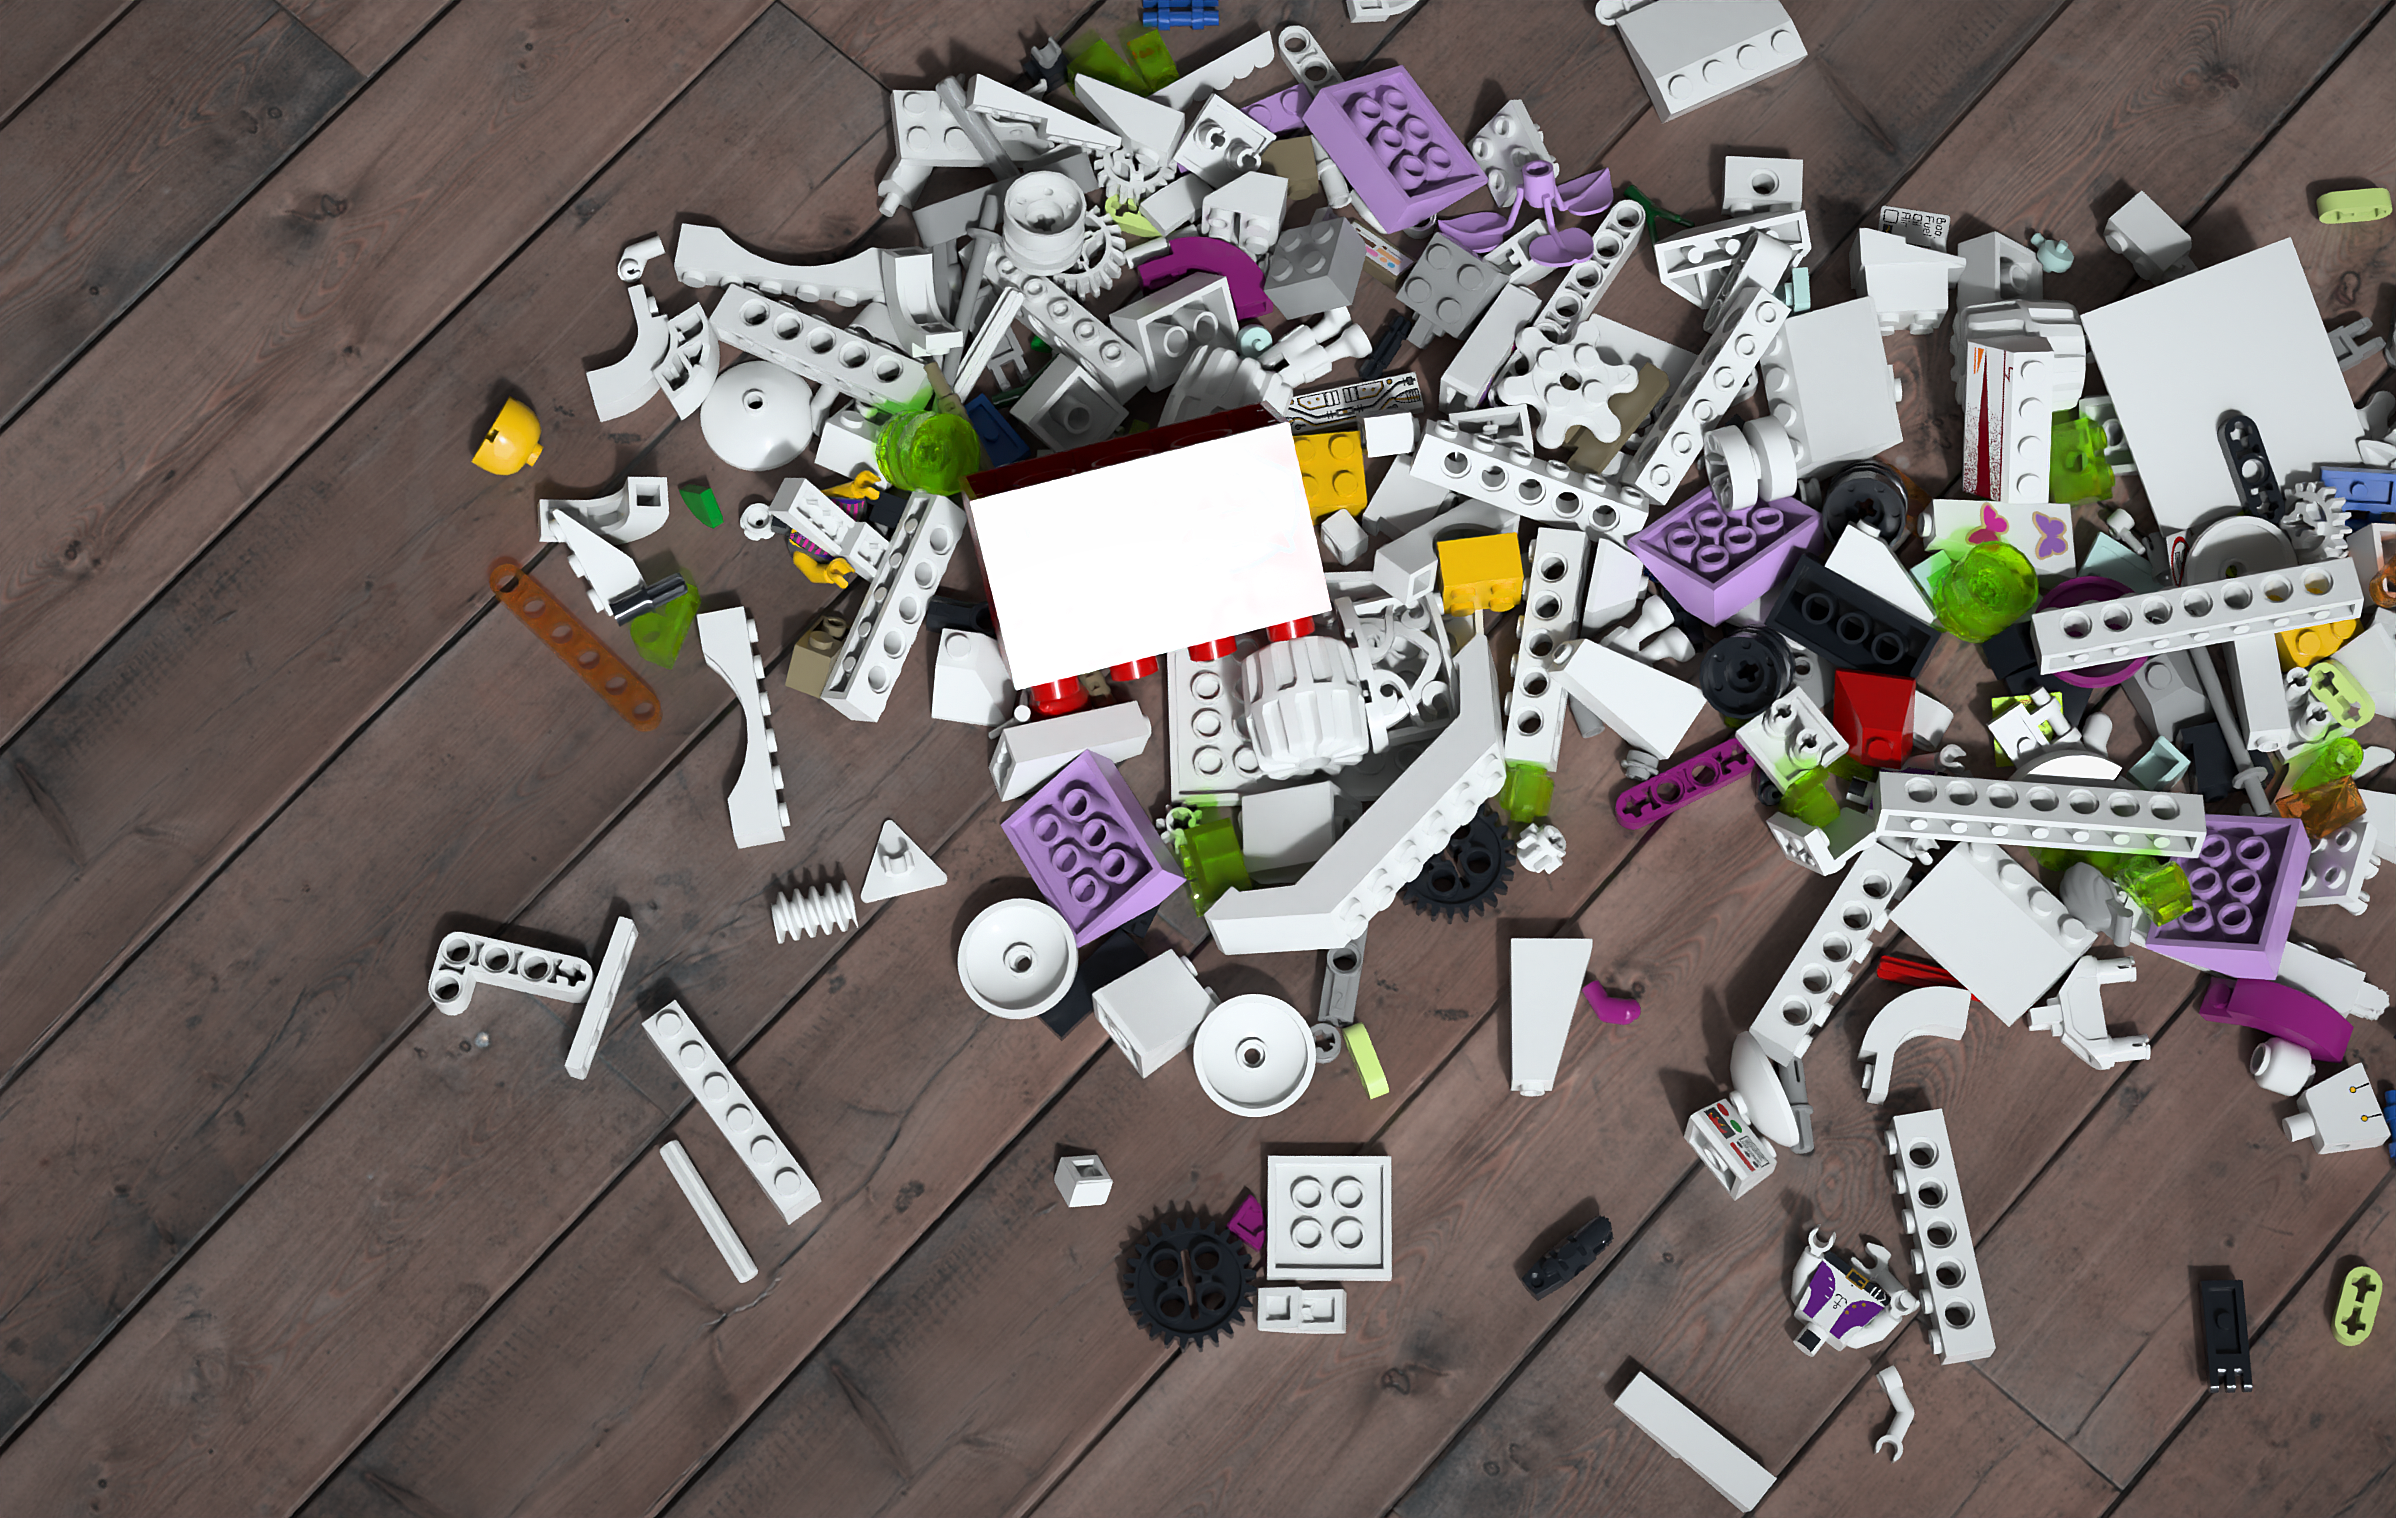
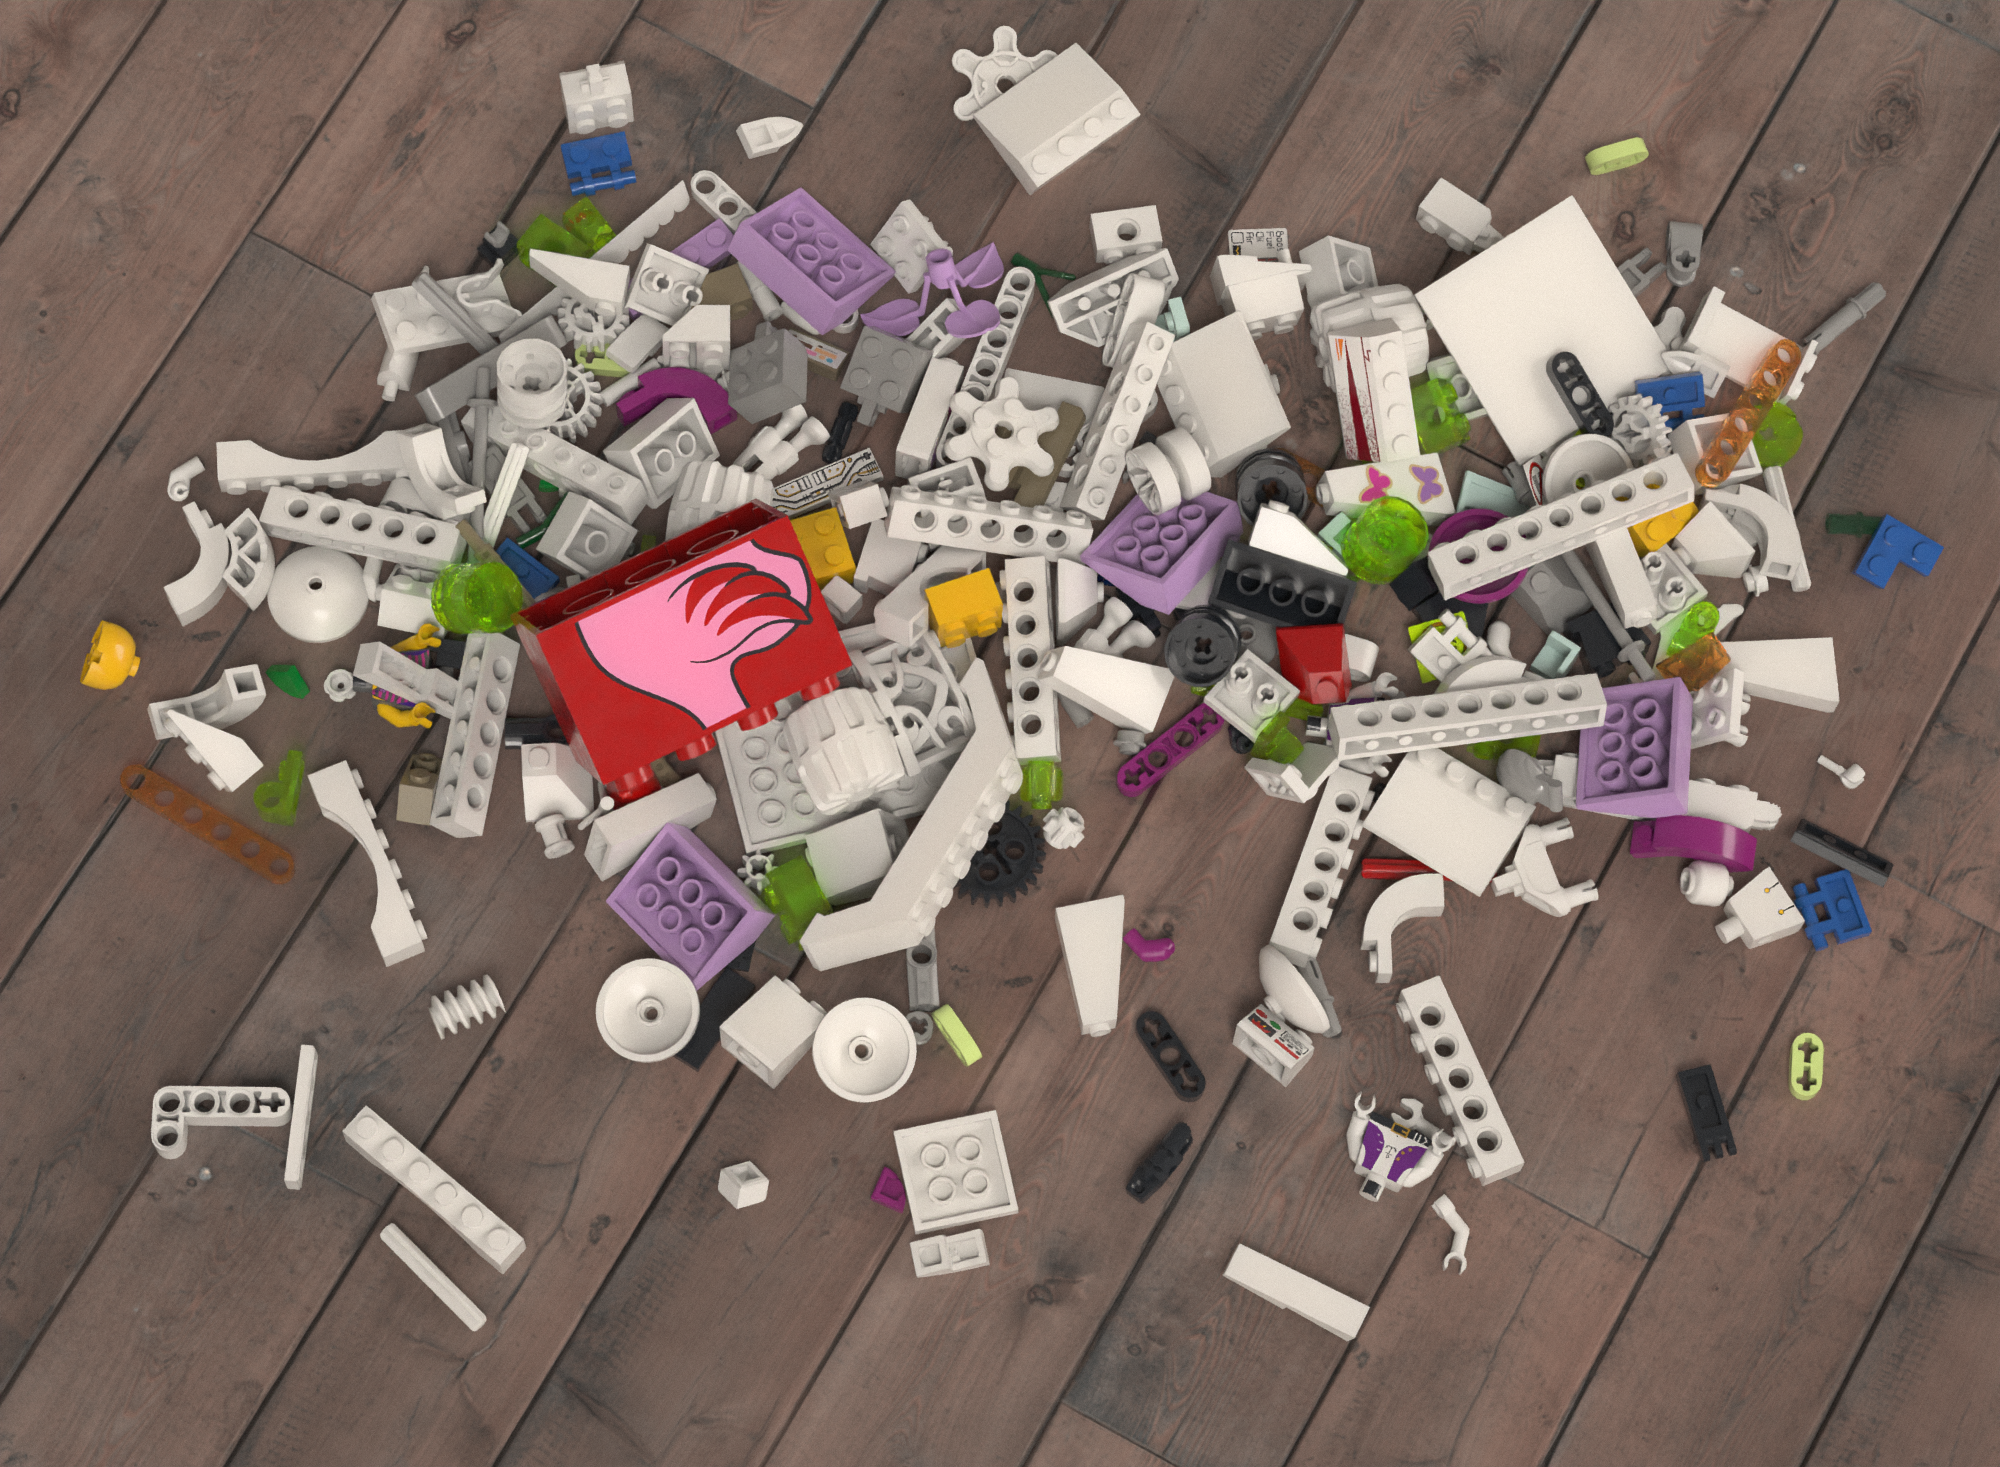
camera: 20 degrees left, 0 degrees up
(648, 598) = (263, 770): black axle -> none
(899, 867) = (527, 954): white piece -> none
(959, 739) = (554, 836): none -> white bush
(1054, 125) = (519, 296): white slope -> none
(1154, 1290) = (823, 1262): black gear -> none
(1253, 341) = (727, 448): light aqua piece -> none
(1629, 1160) = (1149, 1040): none -> black beam
(1809, 494) = (1221, 486): light grey bush -> none
(2053, 254) = (1378, 244): light aqua piece -> none
(2120, 524) = (1481, 463): white hand -> none
(2156, 888) = (1575, 758): clear neon green plate -> none
(2347, 687) = (1694, 561): yellowish green beam -> none

